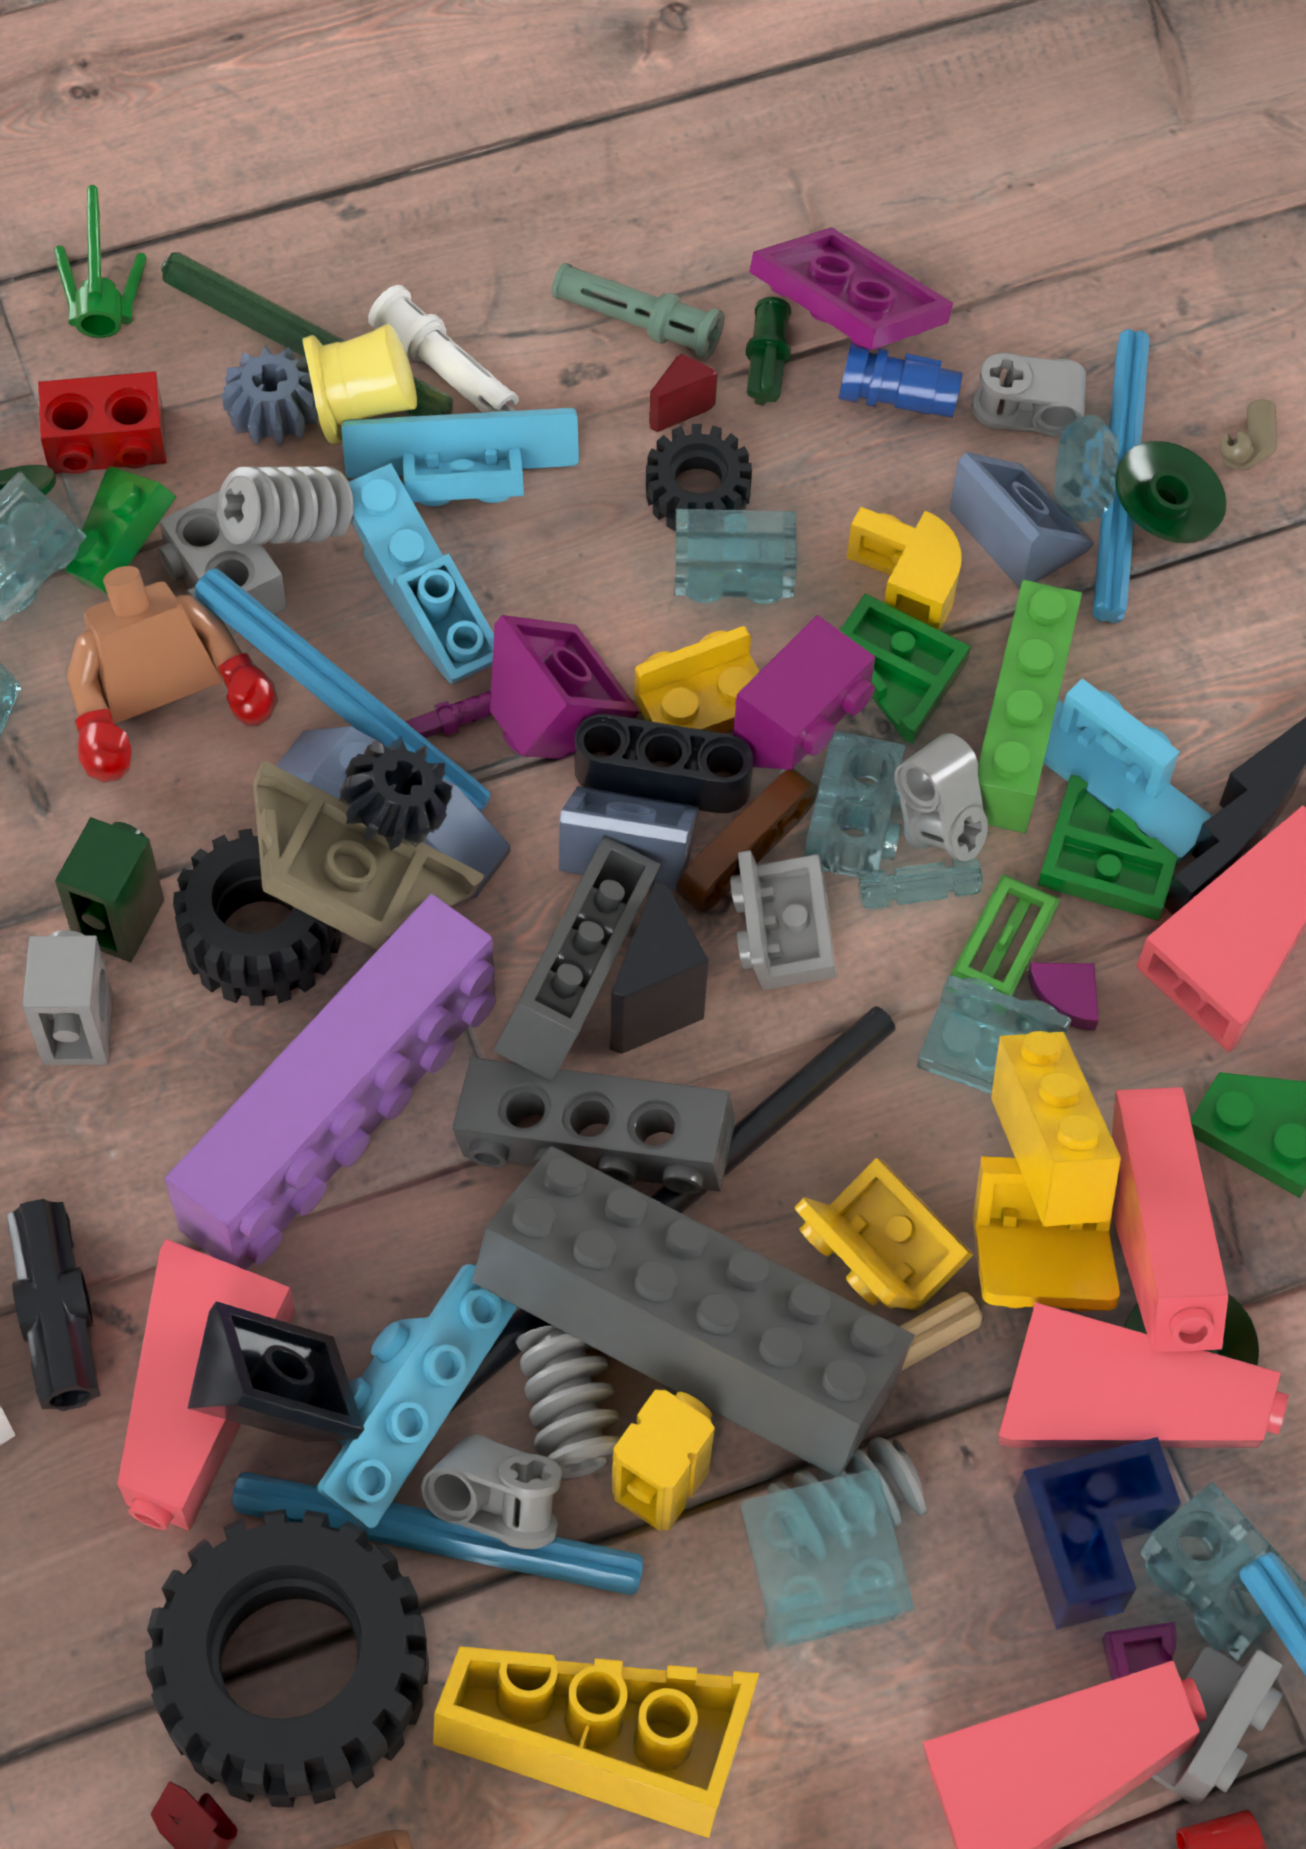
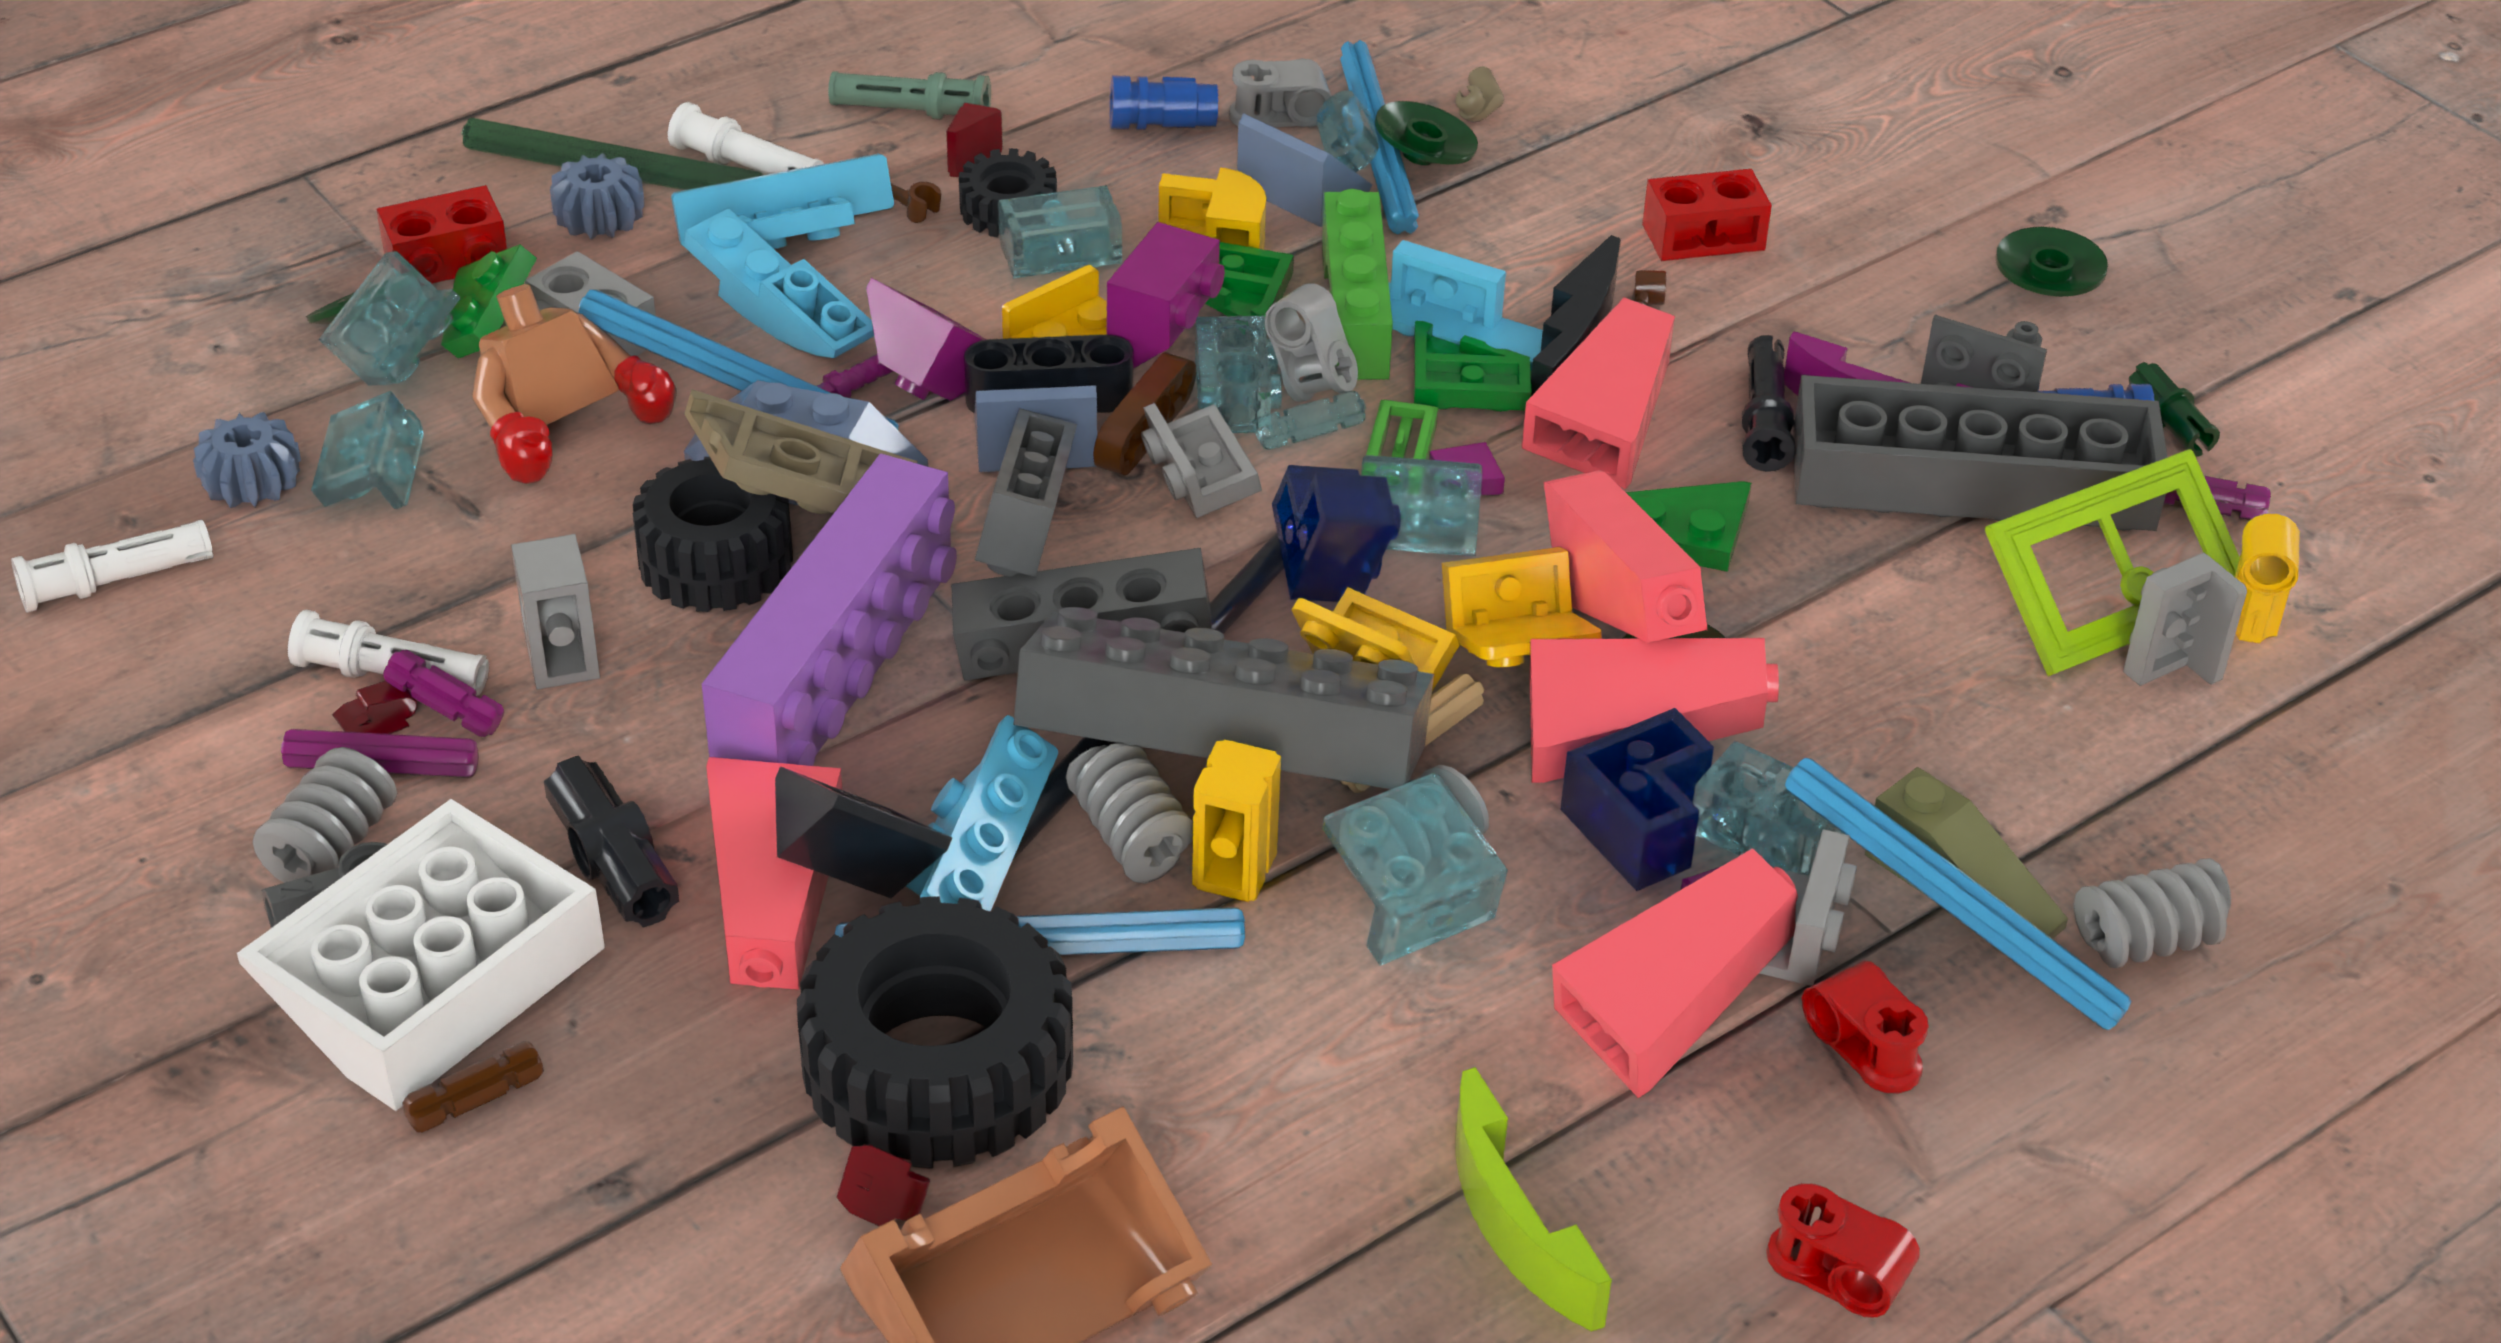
camera: 15 degrees left, 20 degrees down
(97, 305) = (410, 162): green plant -> none
(111, 887) = (569, 500): dark green brick -> none
(284, 504) = (642, 243): light grey piece -> none
(359, 379) = (678, 157): light yellow piece -> none
(395, 793) = (822, 393): black gear -> none
(494, 1487) = (1101, 879): light grey piece -> none
(601, 461) = (918, 199): none -> reddish brown hand
(601, 1728) = (1247, 1025): yellow wedge -> none
(660, 978) = (1109, 494): black slope -> none
(768, 350) = (1037, 103): dark green axle -> none
(850, 288) = (1094, 44): magenta plate -> none
(884, 1074) = (1333, 530): none -> clear blue brick
(1055, 1129) = (1501, 516): yellow brick -> none

